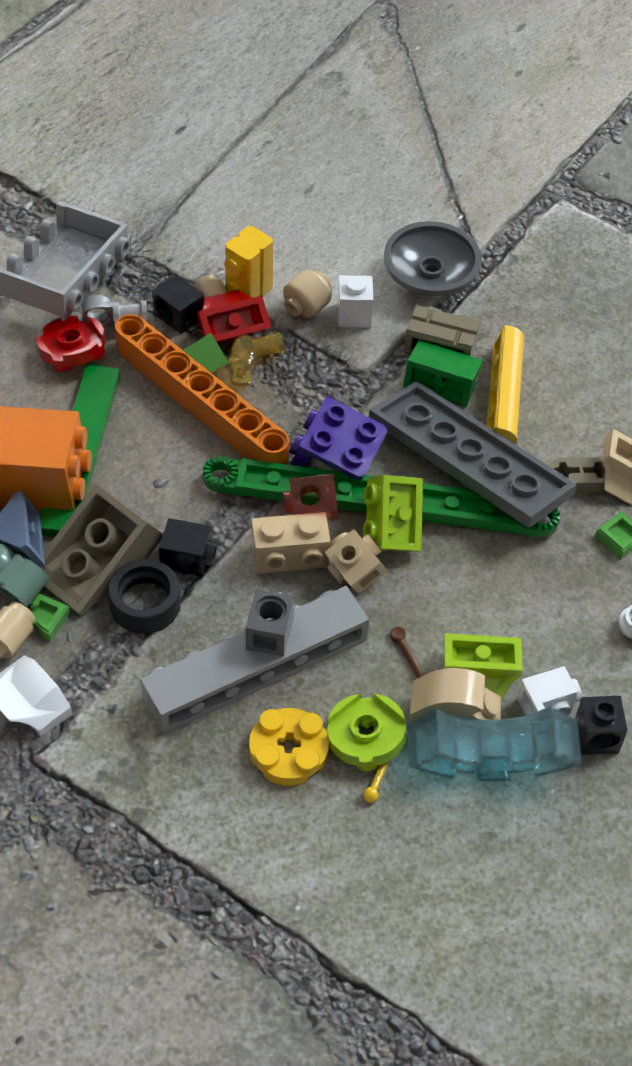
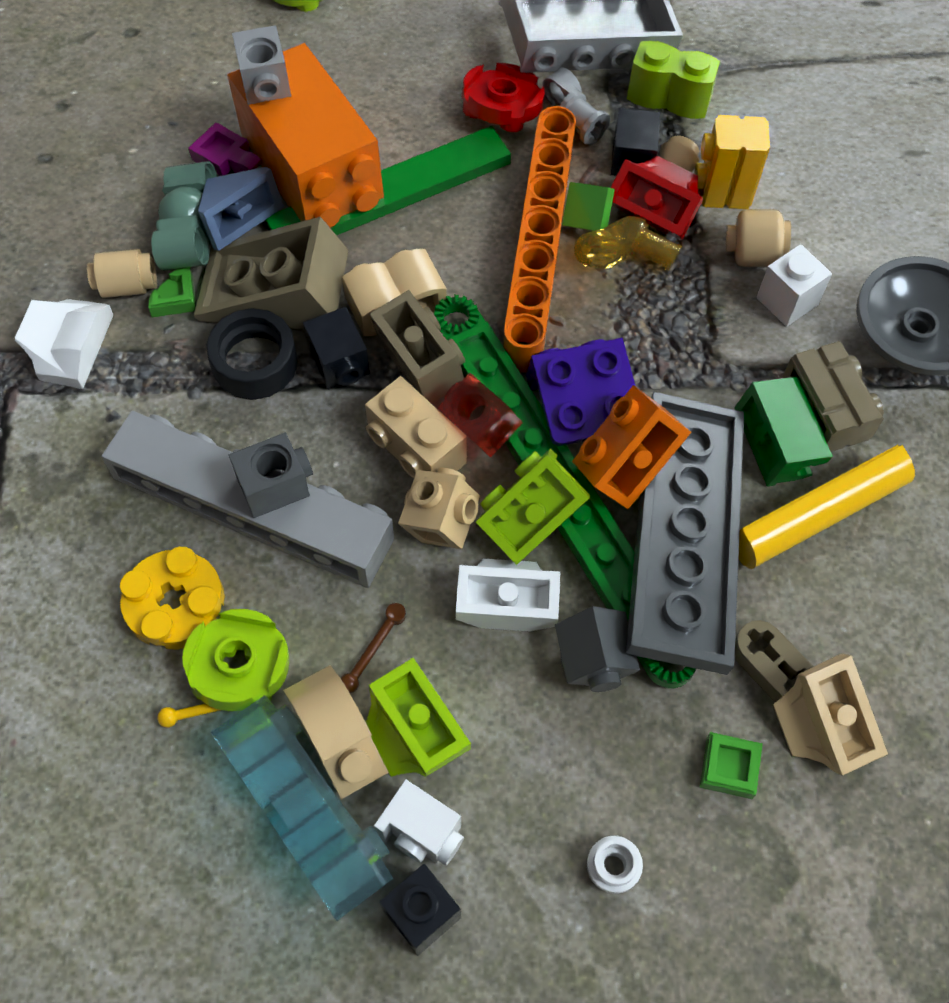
camera: 55 degrees right, 10 degrees up
(150, 253) = (672, 79): none -> lime brick
(170, 489) = (378, 283): none -> tan brick
(230, 500) = (417, 346): none -> dark tan brick
(404, 438) = (630, 447): none -> orange brick
(439, 566) = (508, 595): none -> white slope
(510, 544) = (595, 648): none -> dark grey brick

